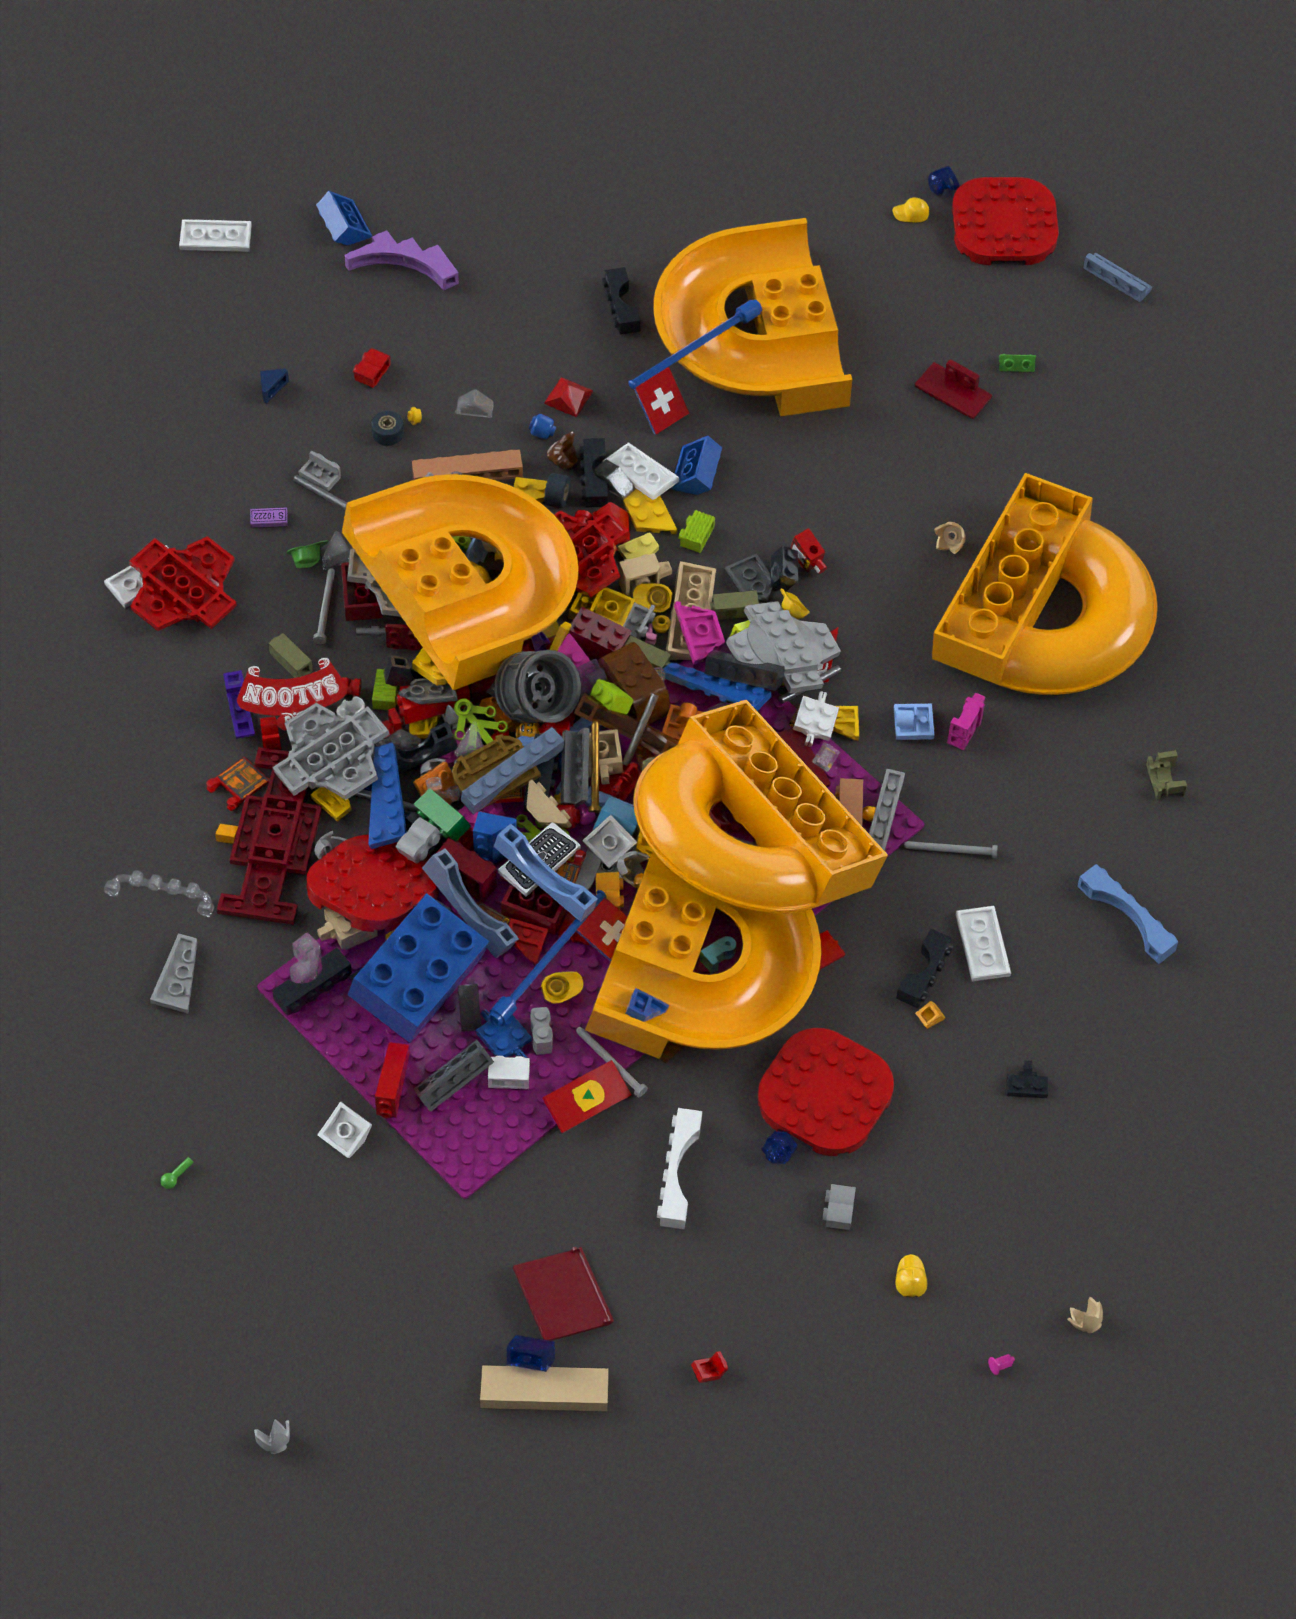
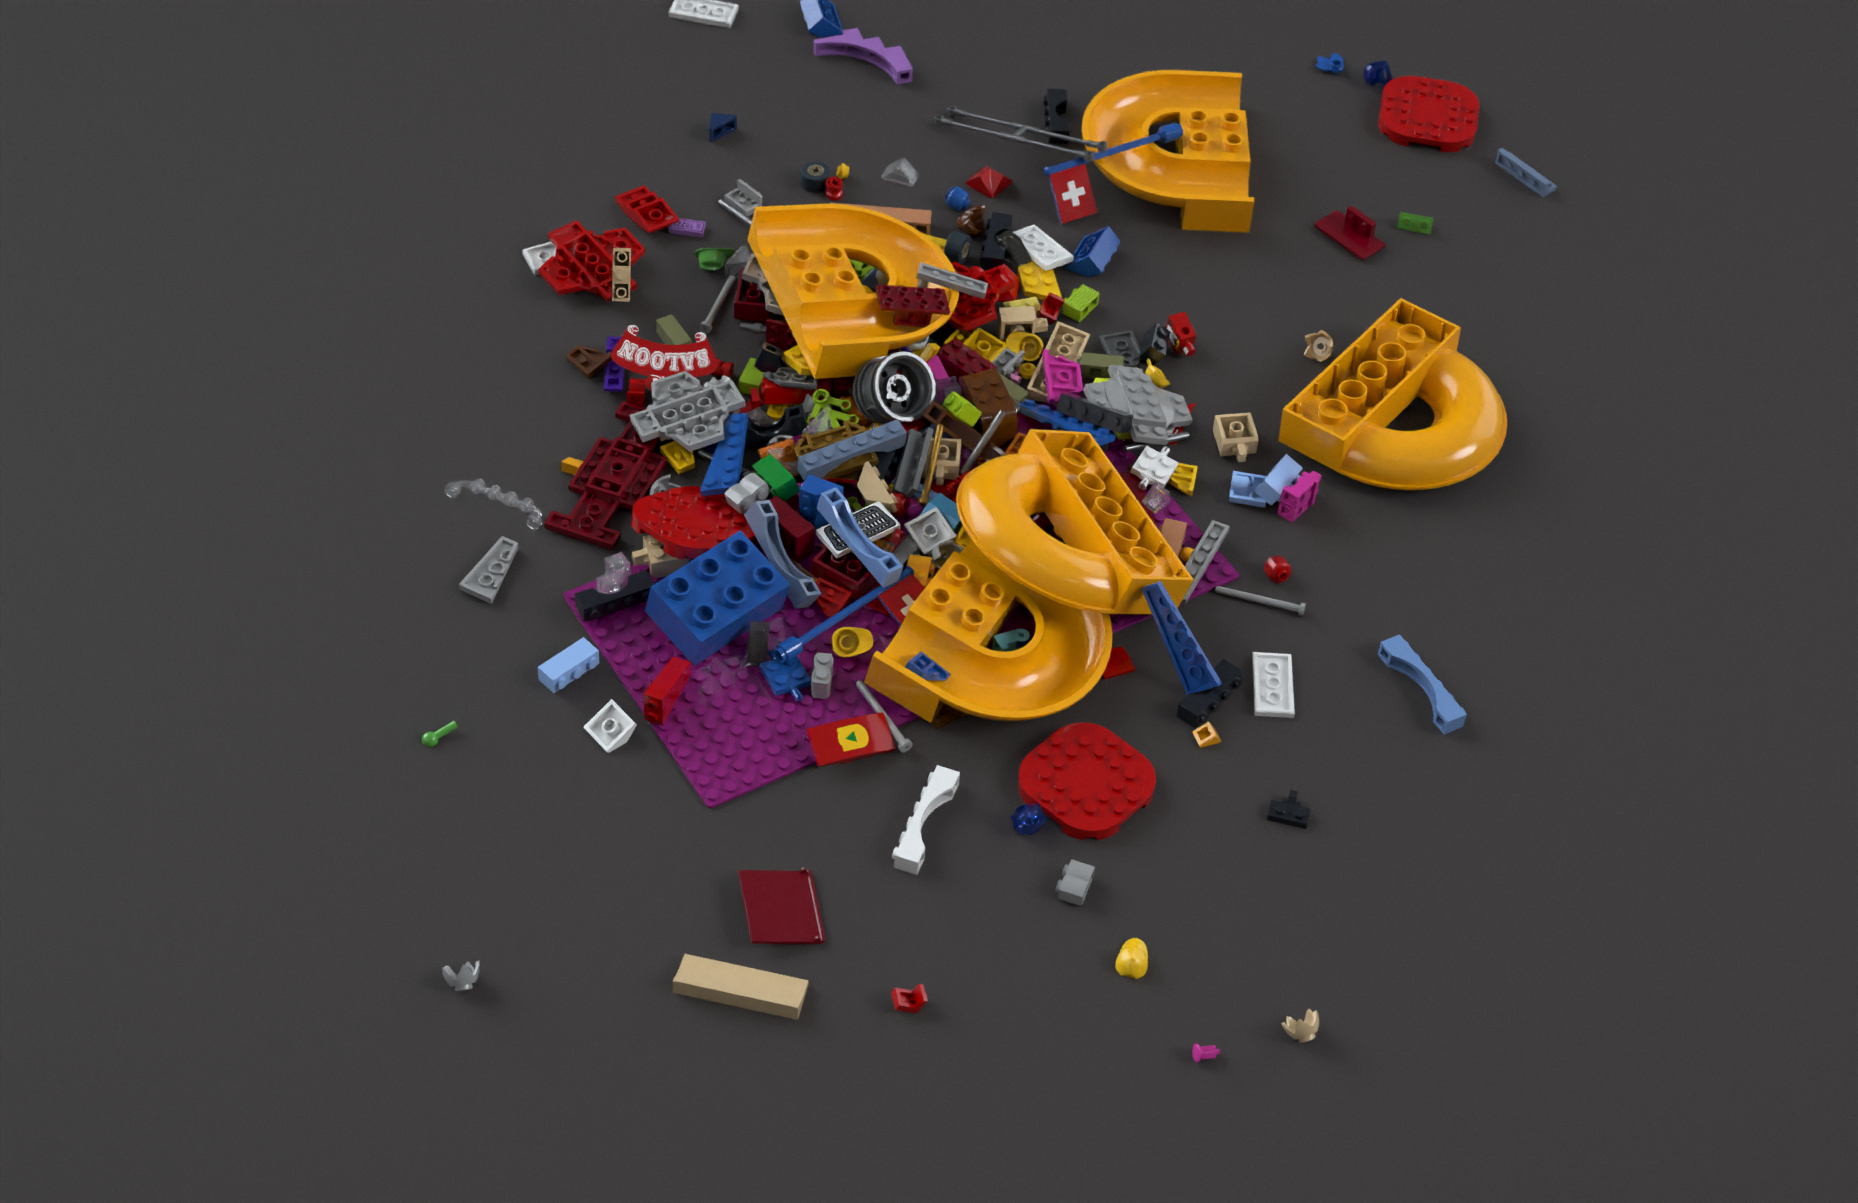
camera: 10 degrees right, 10 degrees down
(210, 703) = (588, 360): none -> reddish brown wing
(220, 600) = (621, 274): none -> tan slope
(221, 505) = (646, 209): none -> red slope
(240, 781) = (595, 425): flag -> none
(285, 1069) = (568, 665): none -> light blue brick
(372, 367) = (814, 129): red brick -> none
(410, 439) = (834, 188): none -> red wheel
(453, 1075) = (726, 696): dark grey fence -> none
(509, 1073) = (780, 705): white brick -> none
(530, 1353) = (734, 949): clear blue brick -> none
(534, 583) = (912, 304): none -> dark red bracket
(564, 545) = (928, 273): none -> light grey piece
(668, 544) = (1050, 307): none -> red bracket
(671, 359) = (1021, 129): none -> dark grey bar
(888, 662) = (1235, 435): none -> tan hinge
(891, 176) = (1332, 64): none -> blue plate
(892, 931) = (1186, 654): none -> blue wing
(913, 210) = (1346, 93): yellow piece -> none
(942, 707) = (1284, 473): none -> light blue brick
(961, 810) = (1277, 569): none -> red head
(1161, 774) = (1481, 574): olive piece -> none

